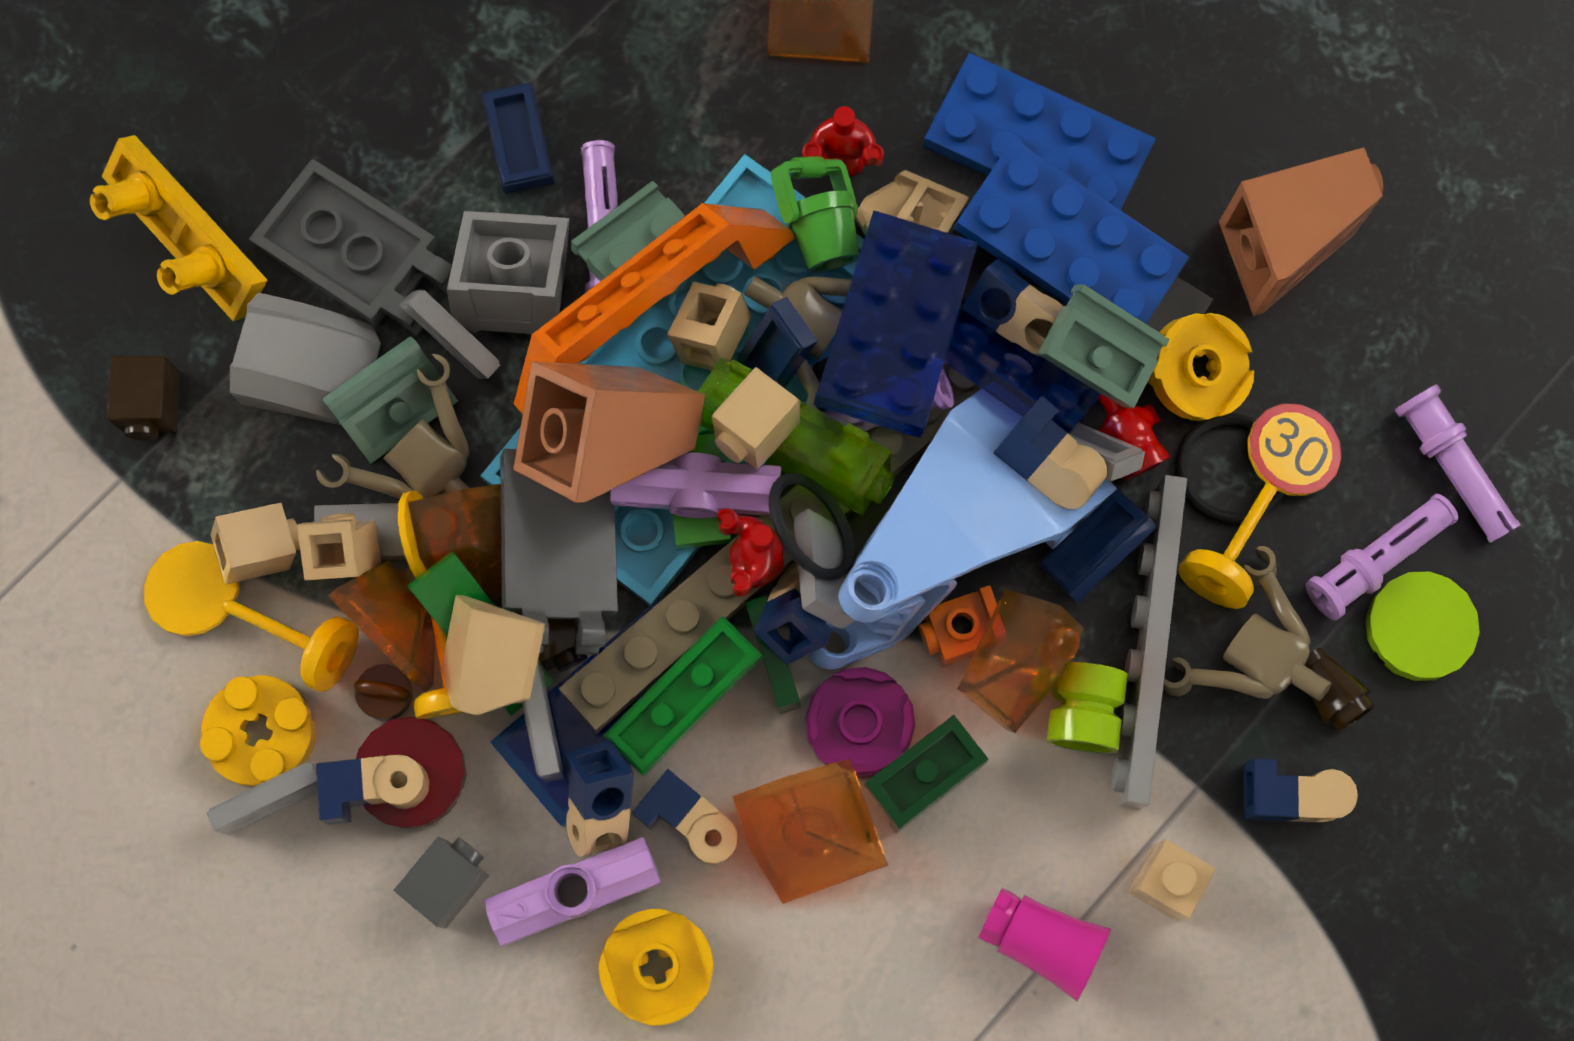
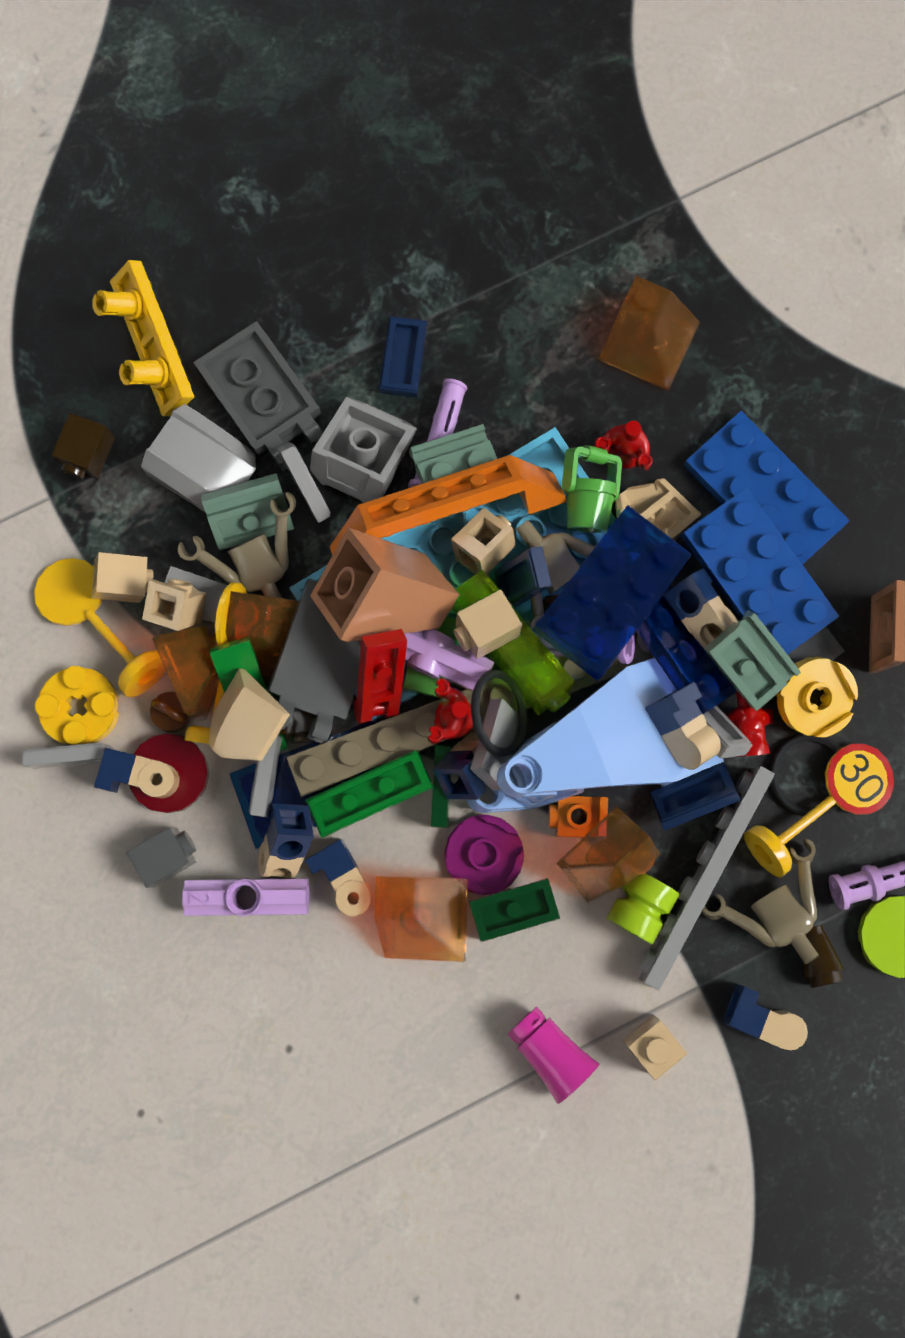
camera: 20 degrees right, 5 degrees up
(627, 951) = (266, 985): yellow plate -> none
(642, 535) = (380, 675): none -> red plate

